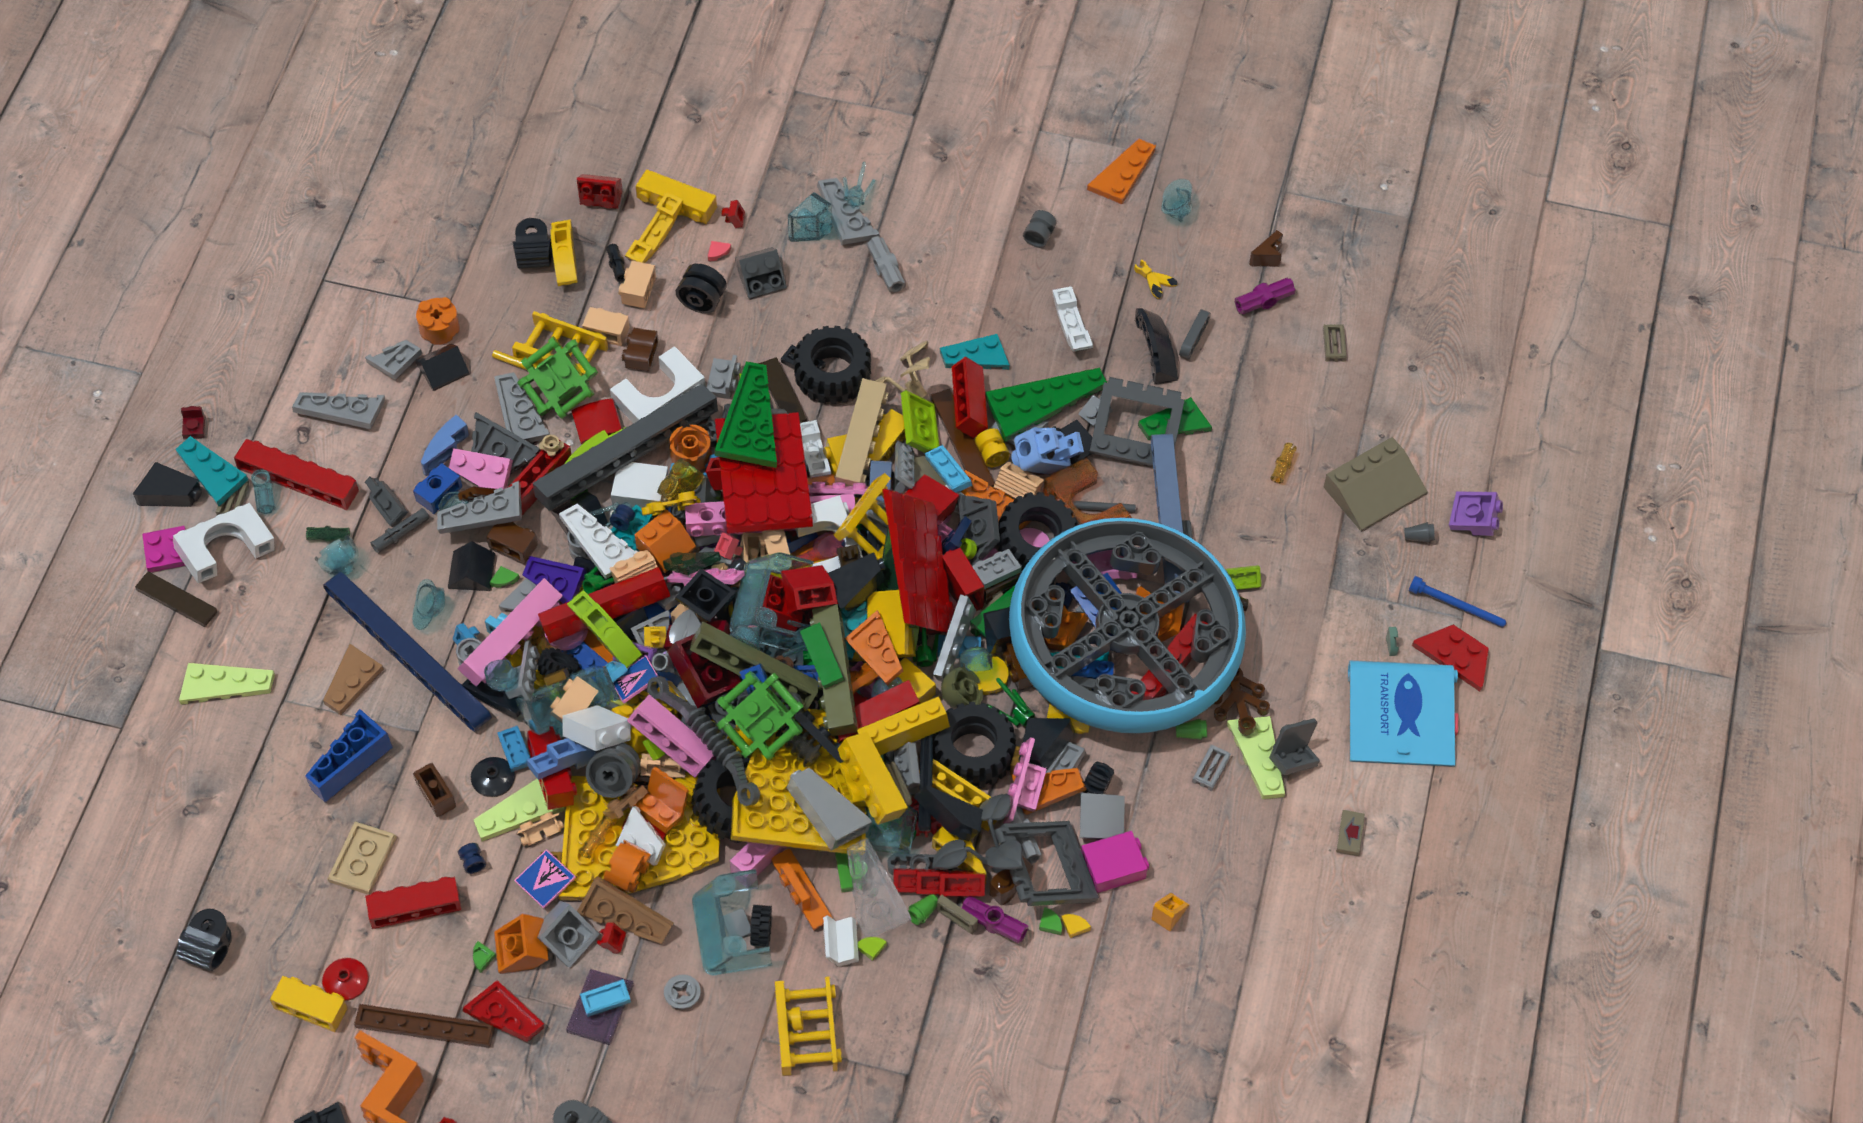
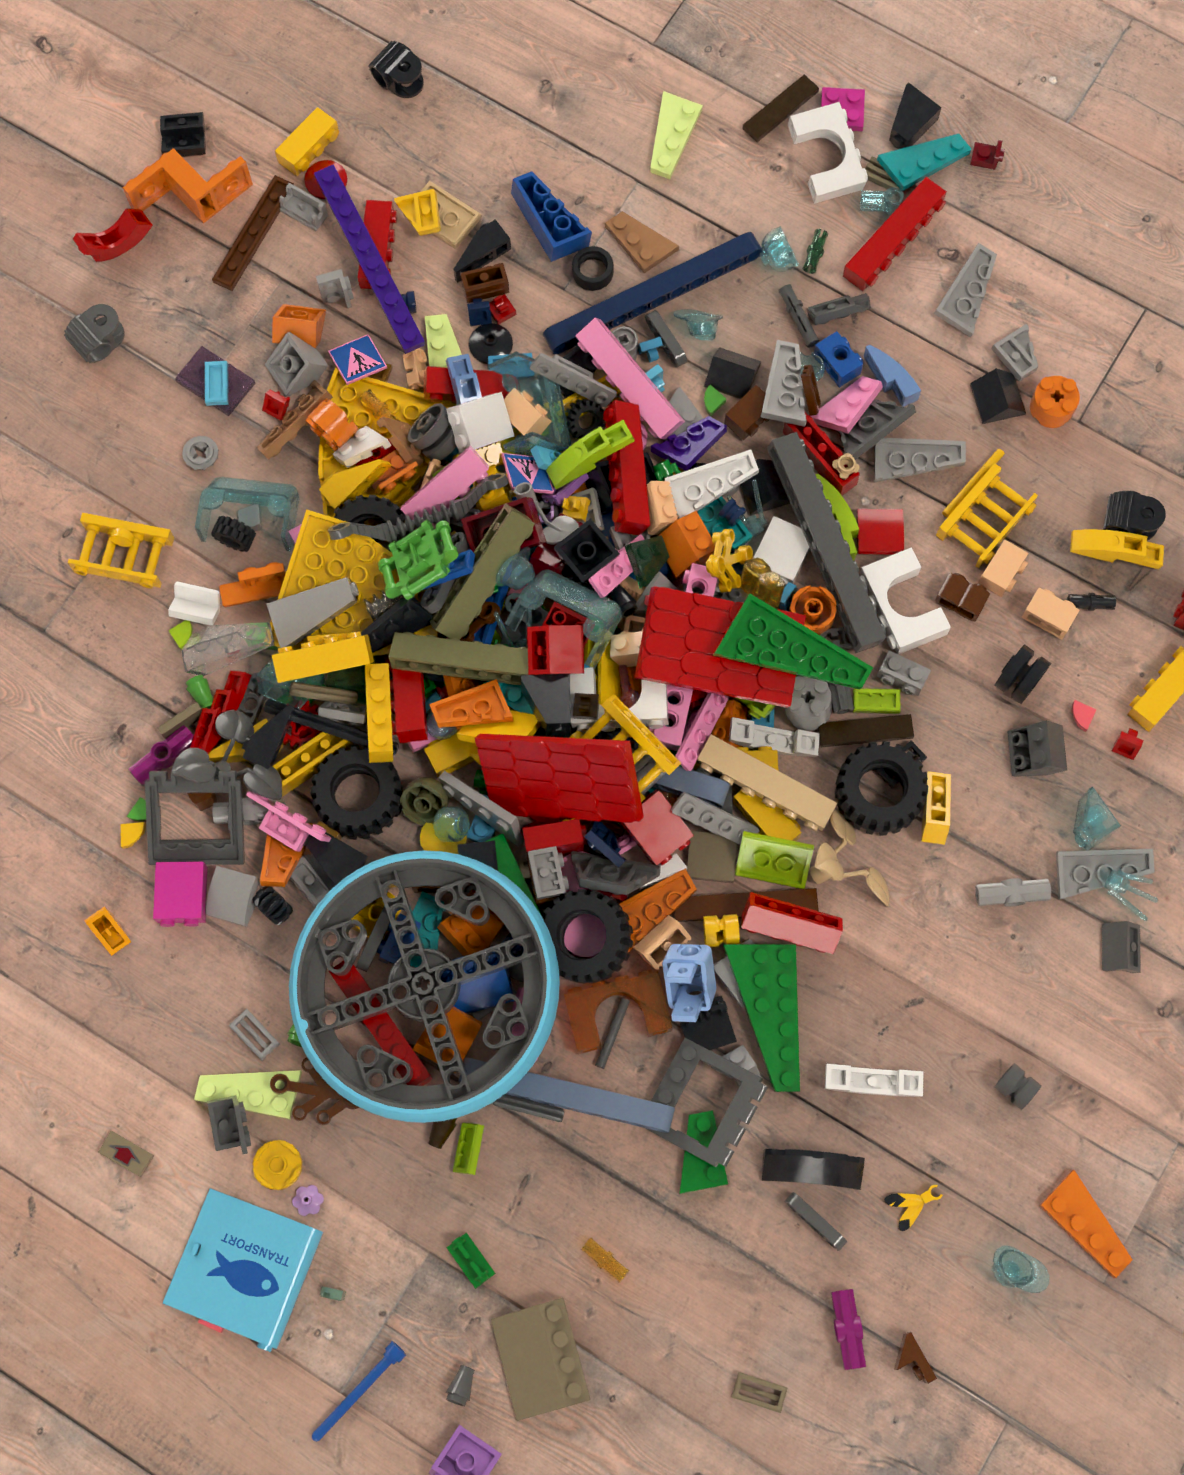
camera: 110 degrees right, 15 degrees up
(368, 868) = (421, 211): none -> yellow wing
(386, 694) = (592, 253): none -> black tyre
(386, 983) = (303, 207): none -> light grey hinge
(395, 807) = (484, 247): none -> black slope
(435, 894) = (369, 259): none -> dark purple plate
(445, 632) = (670, 344): none -> dark grey beam
(455, 776) = (501, 309): none -> red tile
(464, 790) = (479, 312): none -> dark blue tile
(474, 914) = (335, 286): none -> light grey bracket
(482, 956) = (304, 294): bright green tile -> none
(501, 675) = (571, 350): clear light blue hair -> none
(504, 1011) = (237, 297): red wing -> none
(556, 676) = (560, 406): pearl gold tile -> none
(558, 377) = (938, 498): bright green brick -> none
(656, 230) = (1122, 652): yellow slope -> none
(684, 831) = (352, 482): none -> yellow slope
(822, 655) = (474, 644): green tile -> none
(846, 317) = (936, 808): none -> yellow slope
(904, 190) = (1121, 947): none -> dark grey panel
(948, 469) = (702, 870): medium azure tile -> none
(969, 548) = (589, 856): lime tile -> none
(984, 351) = (861, 957): teal wing -> none
(1021, 712) = (382, 850): green plant -> none
(1309, 708) = (277, 1165): none -> yellow tile
(1324, 553) = (470, 1260): none -> green hinge
(1328, 686) = (313, 1203): none -> lavender plant
(1458, 649) = (295, 1365): red wing -> none

